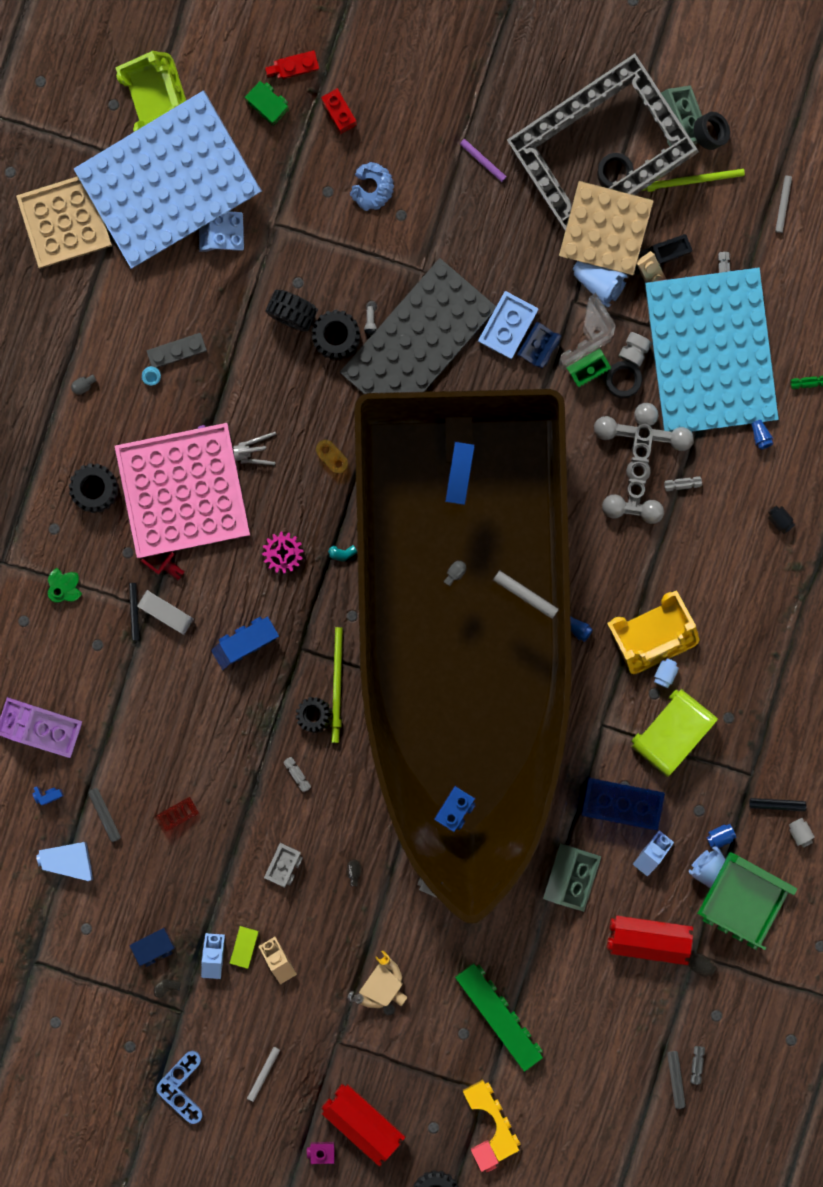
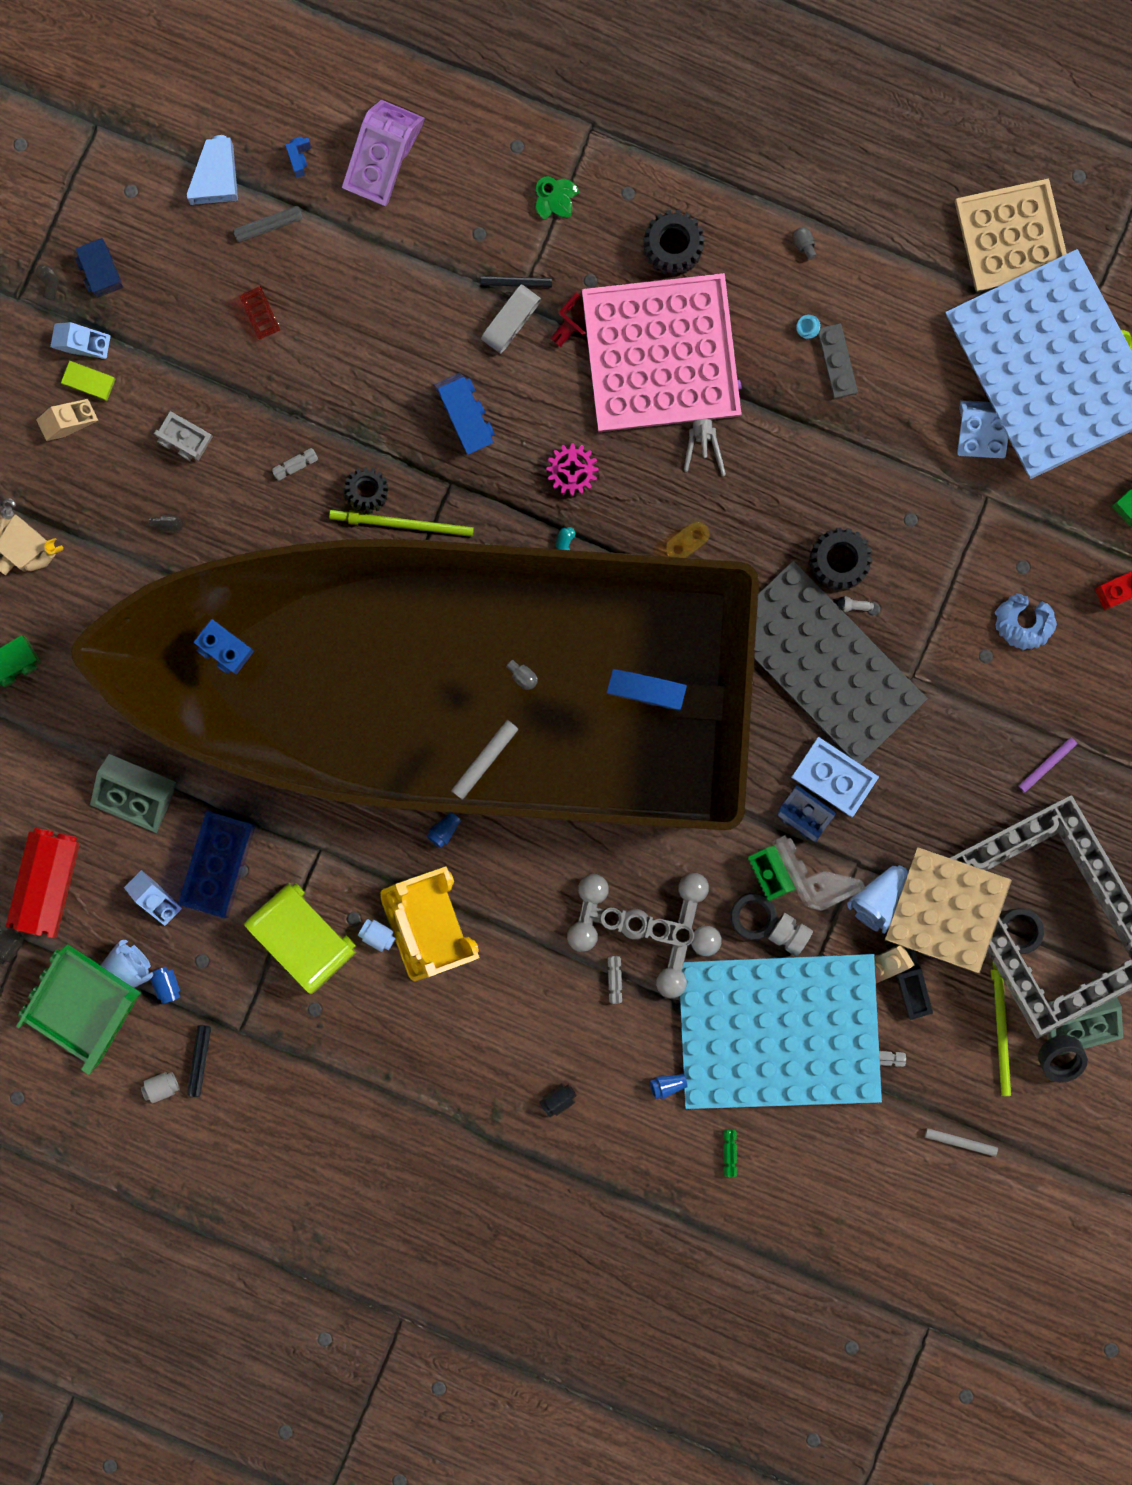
camera: 90 degrees right, 0 degrees up
(291, 310) = (875, 505): black tyre -> none

